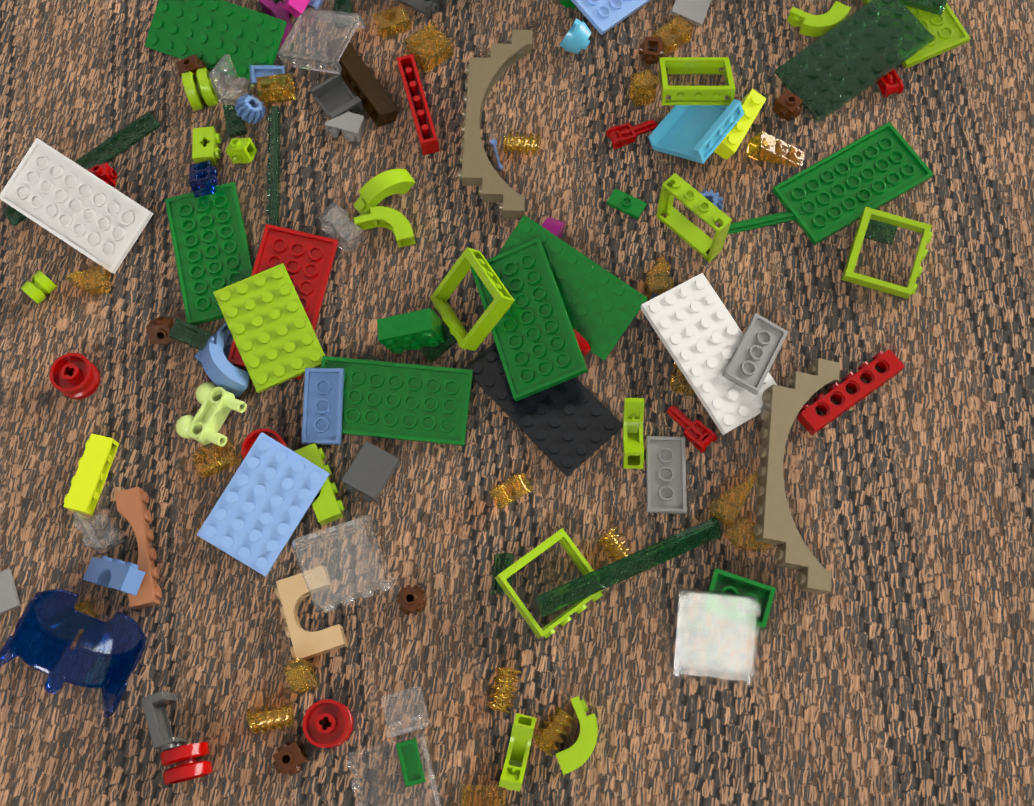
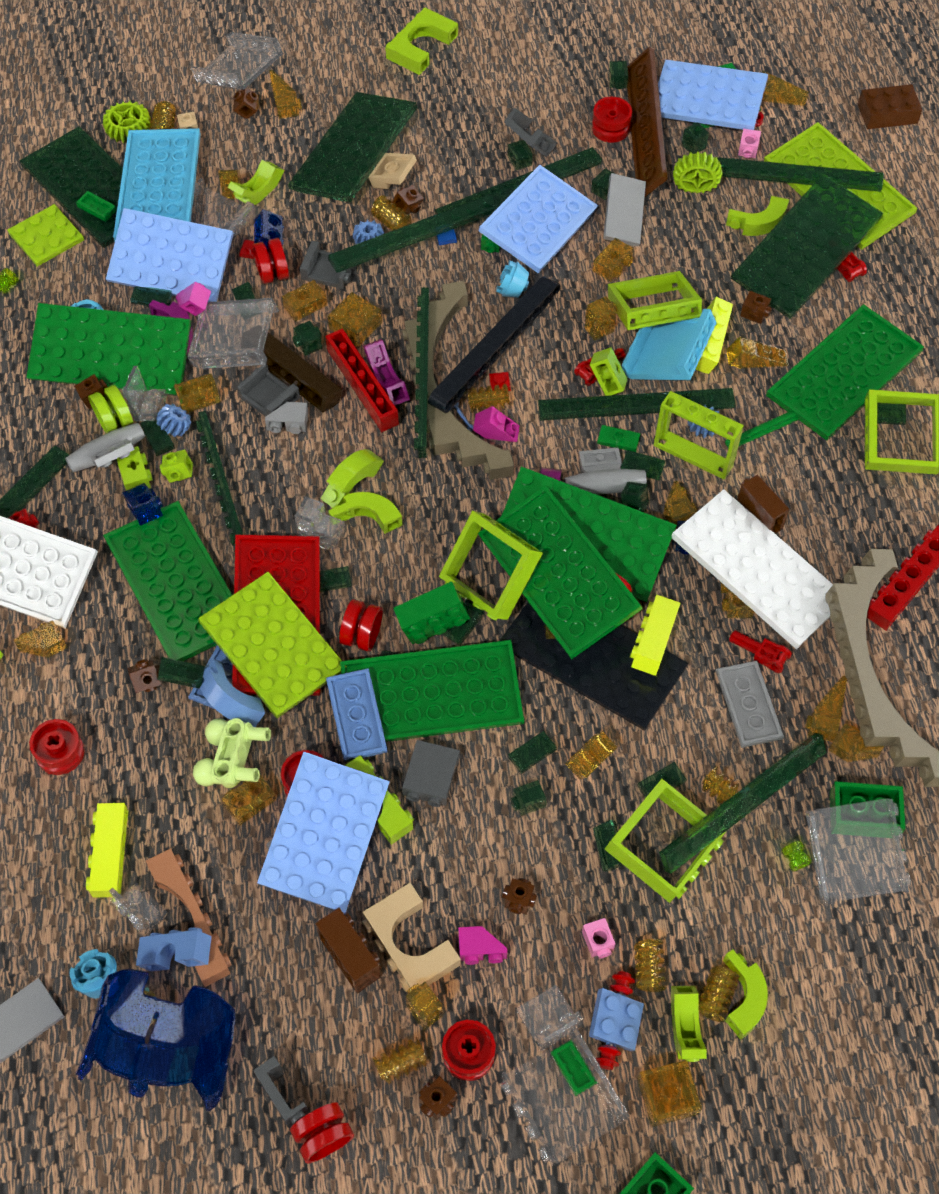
camera: 20 degrees left, 10 degrees down
(47, 576) = (92, 972): none -> medium azure cone
(188, 122) = (106, 448): none -> light grey plate
(254, 612) = (349, 949): none -> reddish brown brick
(264, 70) = (171, 378): medium blue tile -> none
(342, 564) = (431, 875): clear panel -> none
(343, 279) = (335, 579): none -> clear green plate
(349, 327) = (361, 625): none -> red wheel
(364, 632) = (477, 942): none -> dark pink slope
(383, 56) = (307, 337): none -> clear green brick
(439, 102) = (382, 369): none -> magenta arch
(446, 514) = (528, 798): none -> clear green brick
(460, 730) = (616, 1020): none -> medium blue plate
(463, 473) = (532, 752): none -> clear green plate
(465, 645) = (601, 929): none -> bright pink brick
(467, 113) = (422, 378): none -> clear green plate
(520, 169) = (495, 425): none -> dark pink slope
(538, 127) = (499, 379): none -> red plate
(540, 94) = (493, 345): none -> black beam
(572, 525) = (670, 774): none -> clear green plate
(599, 394) = (655, 635): none -> neon yellow brick
(602, 234) = (604, 472): none -> light grey plate
(621, 263) = (635, 496): none -> clear green brick
(633, 140) = (608, 372): none -> lime brick
(633, 433) = (701, 668): lime arch -> none
(640, 233) = (651, 465): none -> clear green plate
(649, 174) = (628, 404): none -> clear green plate
(651, 50) = (596, 278): reddish brown brick -> none
(662, 624) = (796, 856): none -> clear neon green wheel
(733, 294) = (763, 503): none -> reddish brown brick
(755, 354) = (804, 559): light grey tile -> none

